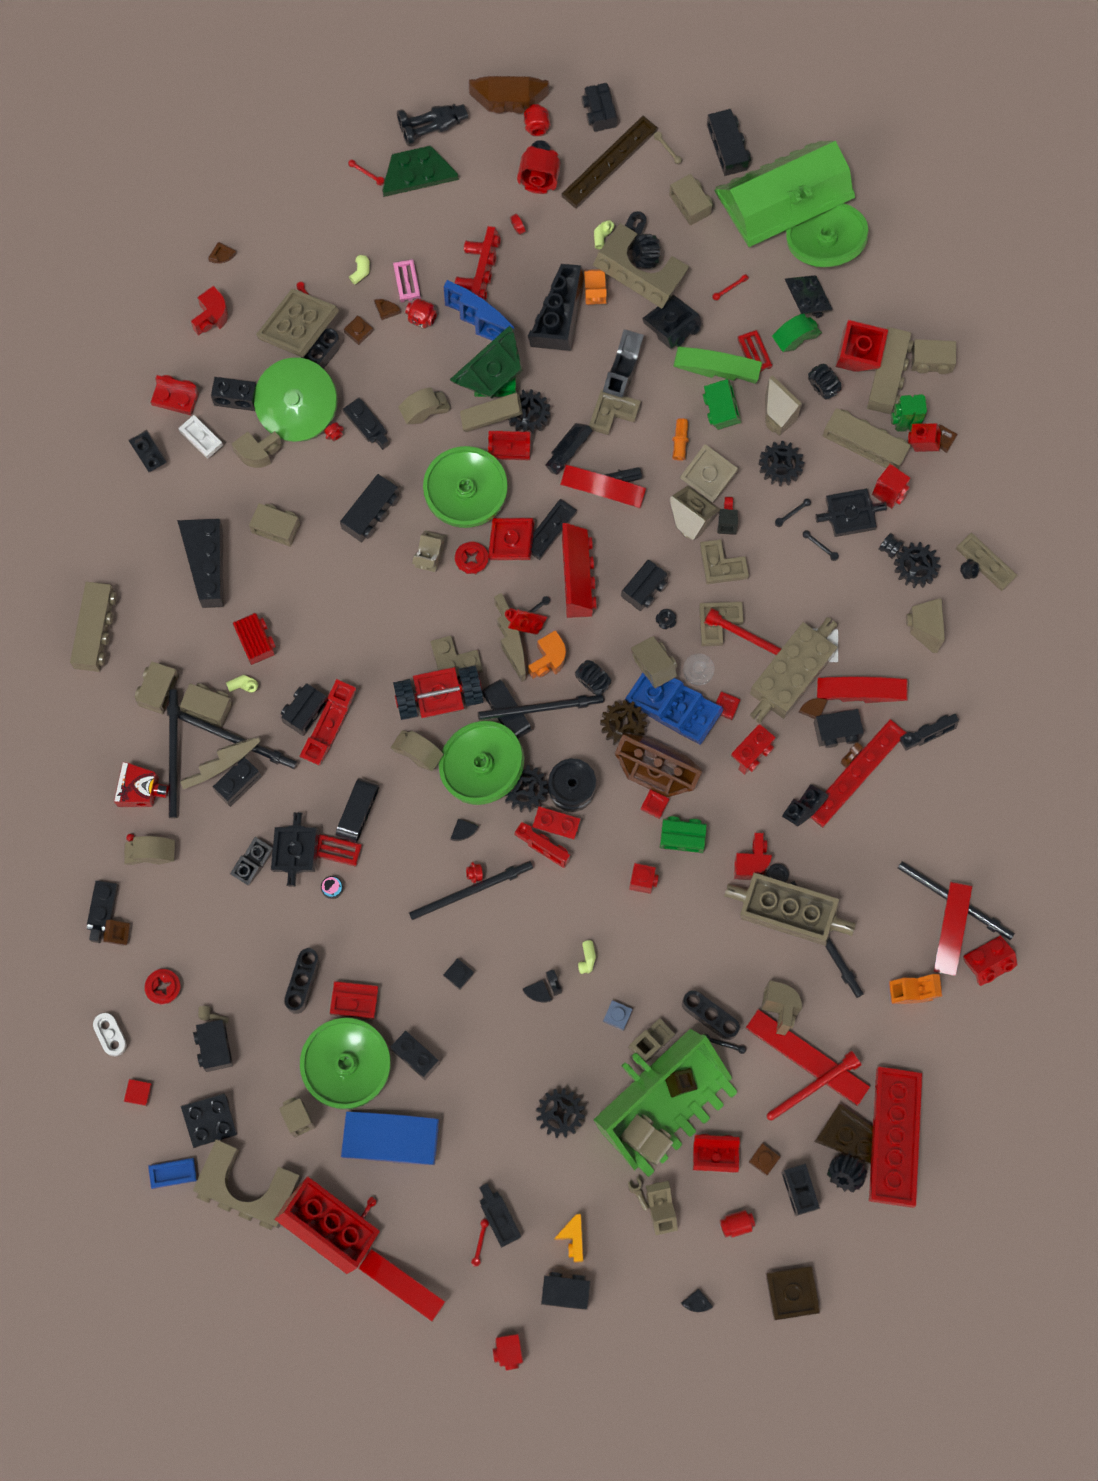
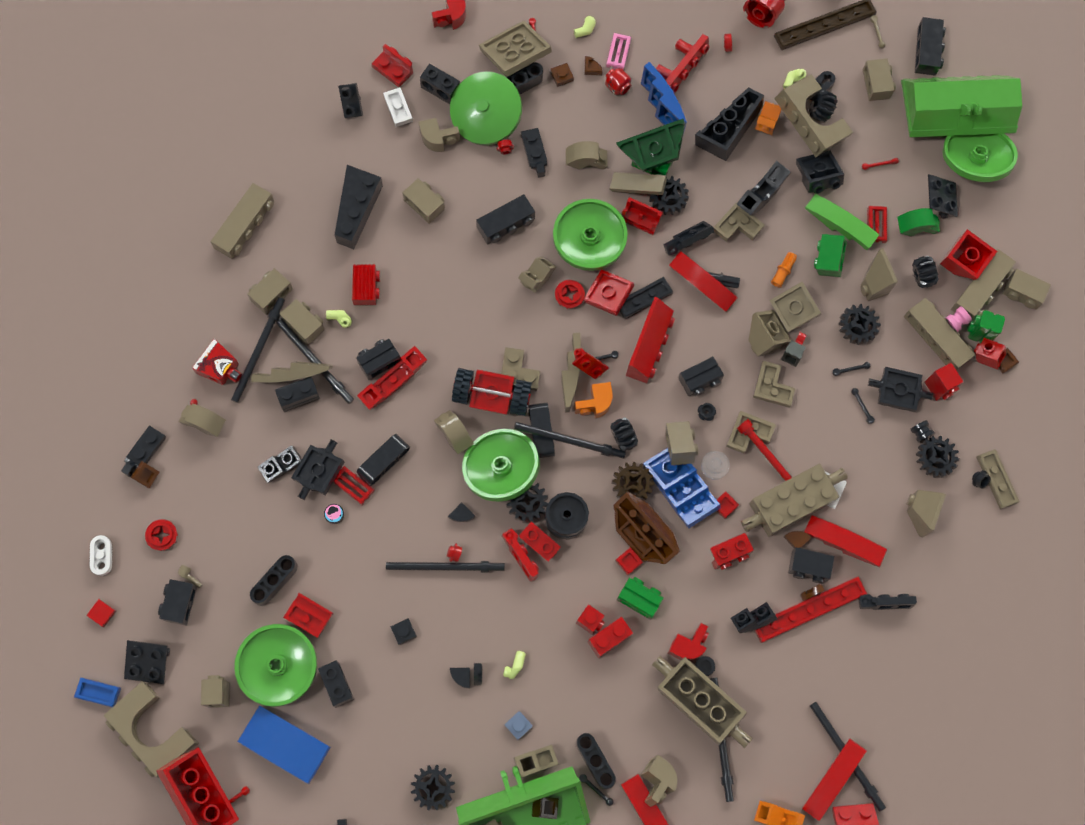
camera: 20 degrees right, 0 degrees up
(670, 887) = (610, 637): none -> red brick
(880, 413) = (959, 318): none -> bright pink wheel

